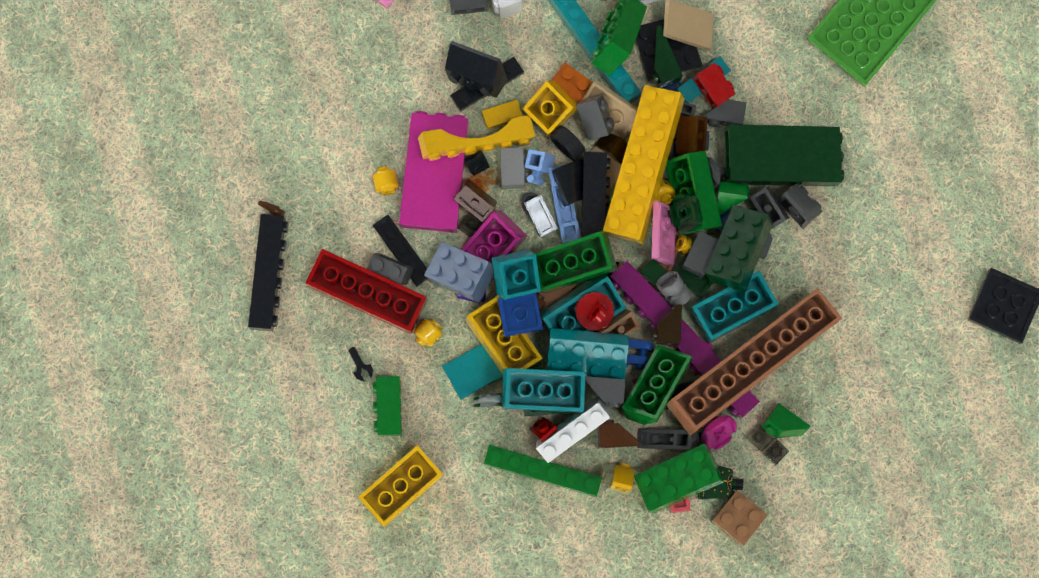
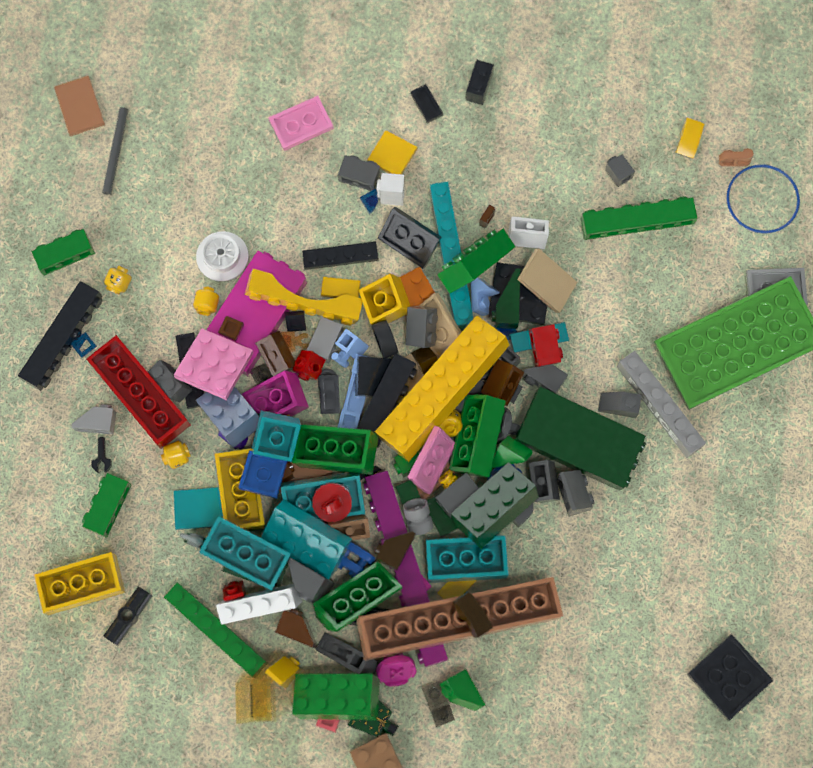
camera: 30 degrees right, 5 degrees down
(171, 49) = (79, 105): none -> nougat tile
(228, 77) = (115, 151): none -> dark grey piece
(229, 193) = (63, 252): none -> green brick
(273, 209) = (94, 281): reddish brown piece -> none
(286, 272) = (76, 344): none -> tile
(293, 197) = (117, 280): none -> yellow head
(340, 334) = (97, 420): none -> light grey slope
(378, 144) = (224, 266): none -> white piece
(424, 195) = (231, 328): none -> reddish brown tile
(425, 235) = (213, 364): none -> bright pink plate
(459, 481) = (120, 627): none -> black piece
(475, 69) = (332, 236): black slope -> none
(489, 20) = (370, 201): none -> tile
(509, 197) = (308, 365): none -> red brick
(544, 39) = (409, 237): none -> plate
(608, 516) = (255, 701): none -> clear yellow slope
(634, 68) = (479, 296): none -> light blue slope
(639, 251) = (403, 466): none -> green brick
(688, 204) = (460, 449): dark green plate -> none
(734, 339) = (455, 588): none -> yellow tile
(766, 350) = (473, 613): none -> dark brown slope
(803, 108) = (620, 403): none -> dark grey slope
(839, 92) = (661, 404): none -> light grey brick

